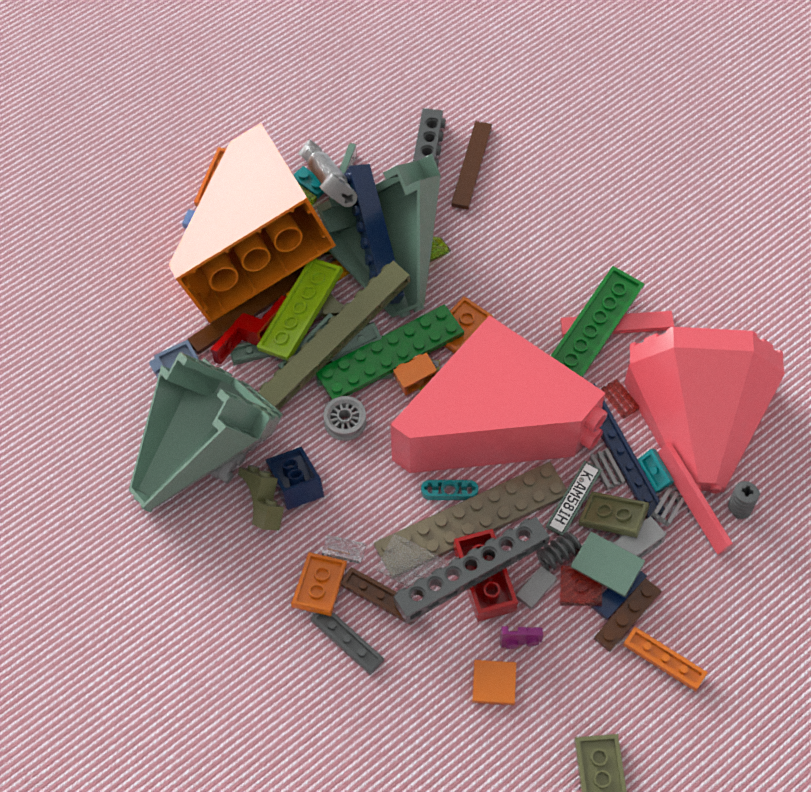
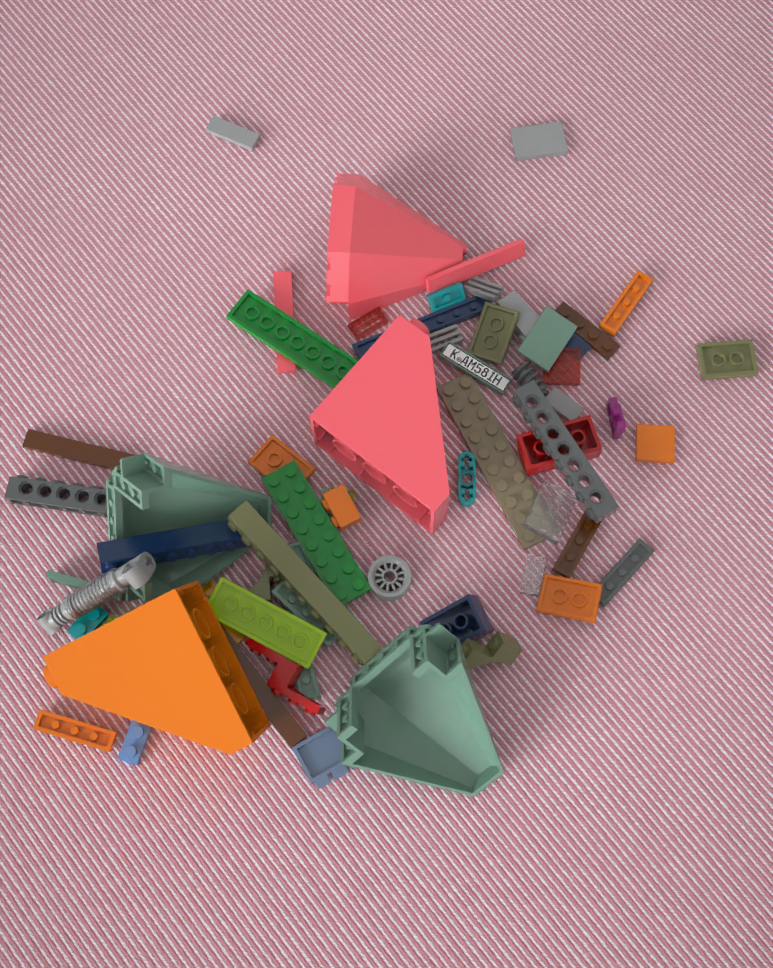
camera: 90 degrees left, 10 degrees up
(743, 499) = (479, 224): dark grey piece -> none

